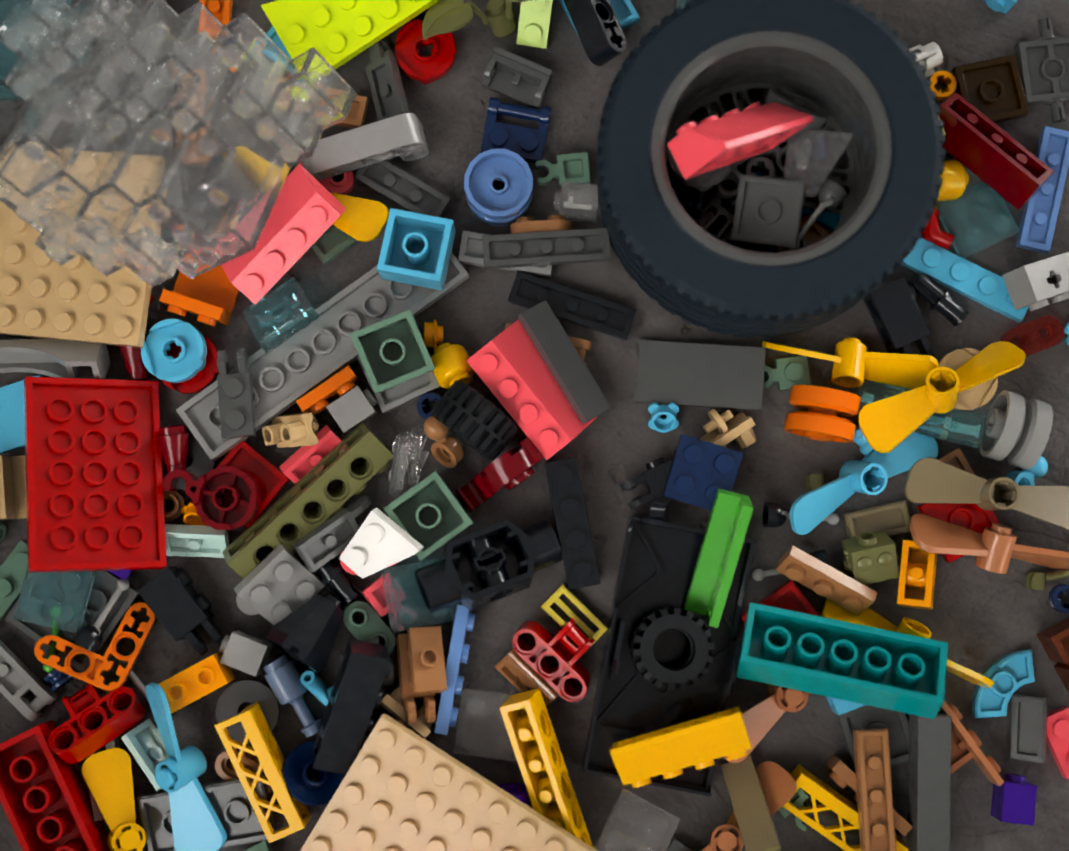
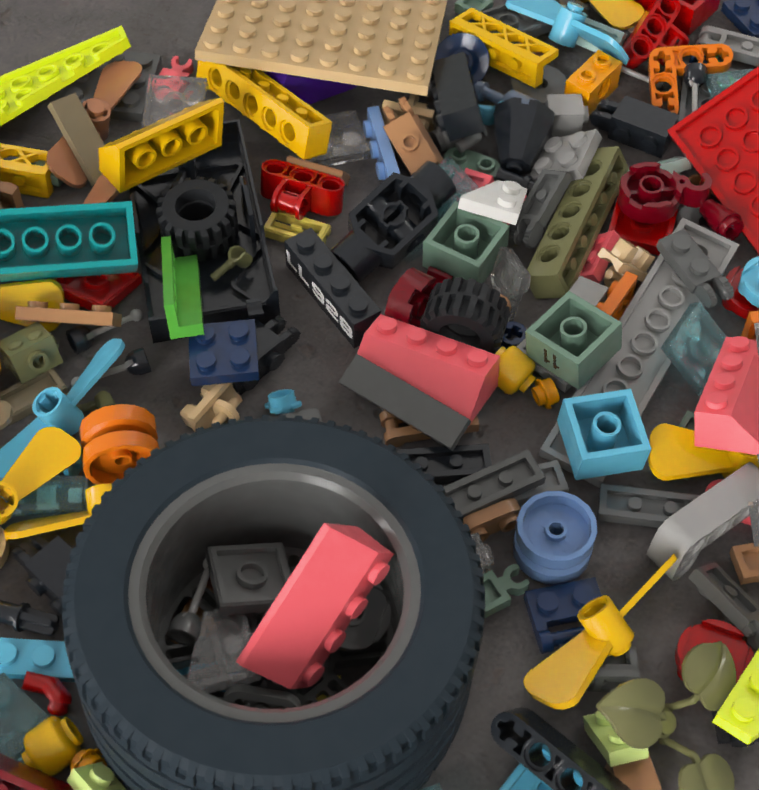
camera: 160 degrees right, 30 degrees down
(548, 67) = (569, 671): none -> yellow piece
(652, 589) = (237, 256): none -> olive hand

